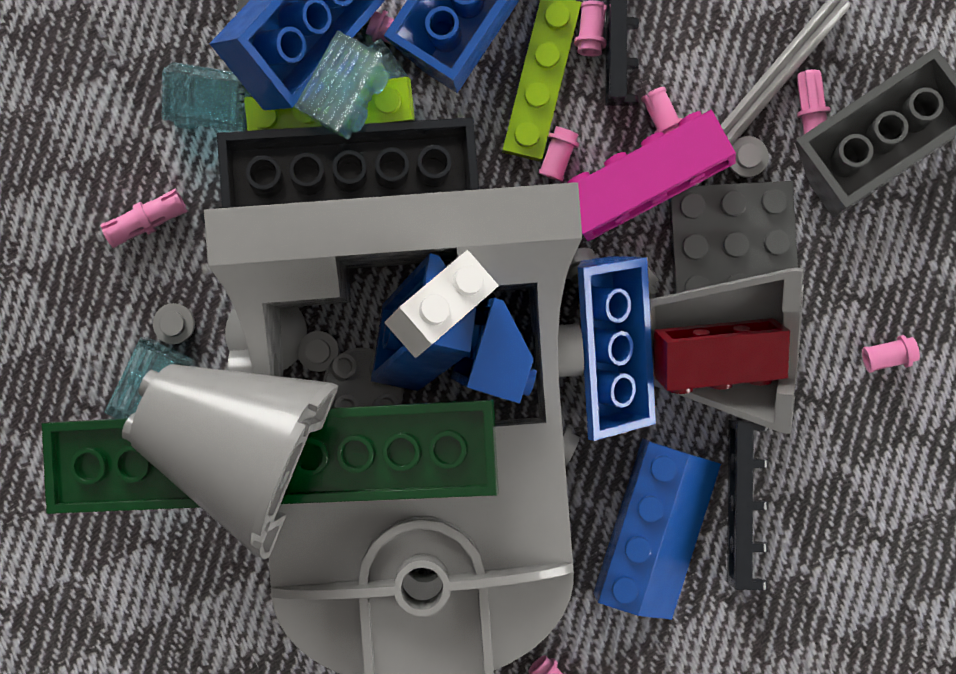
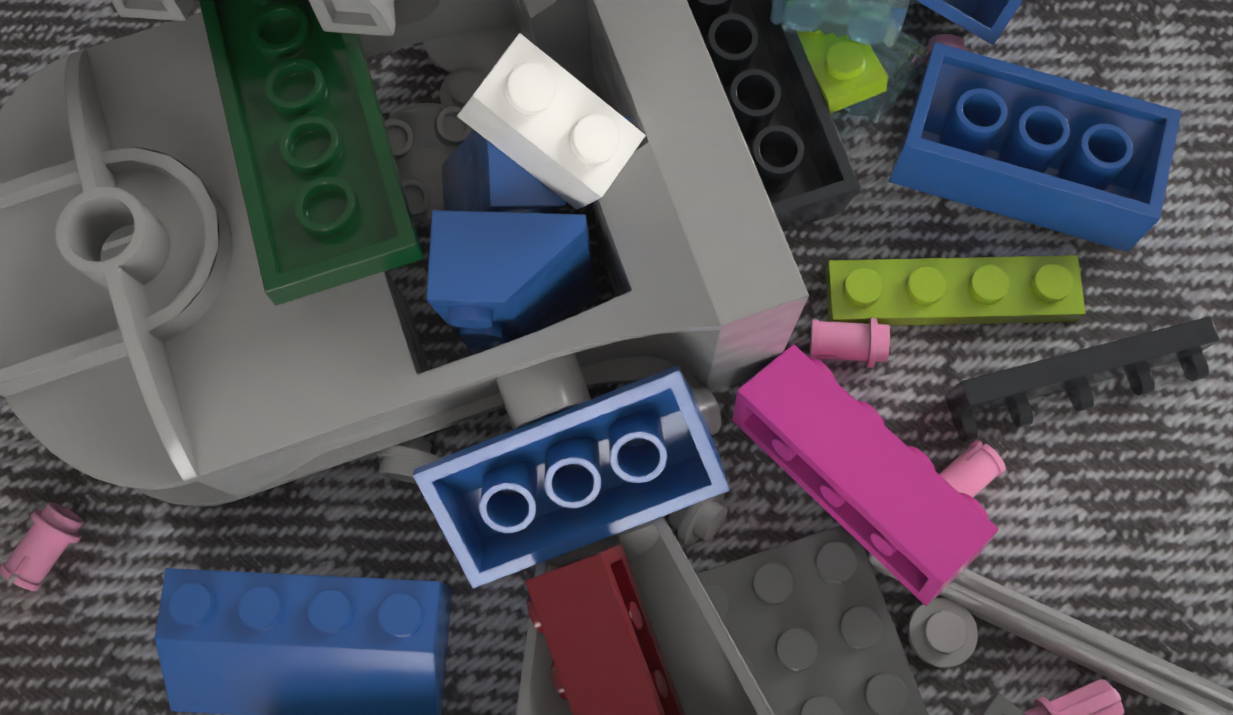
camera: 80 degrees right, 15 degrees down
(590, 38) = (1037, 340): bright pink pin -> none

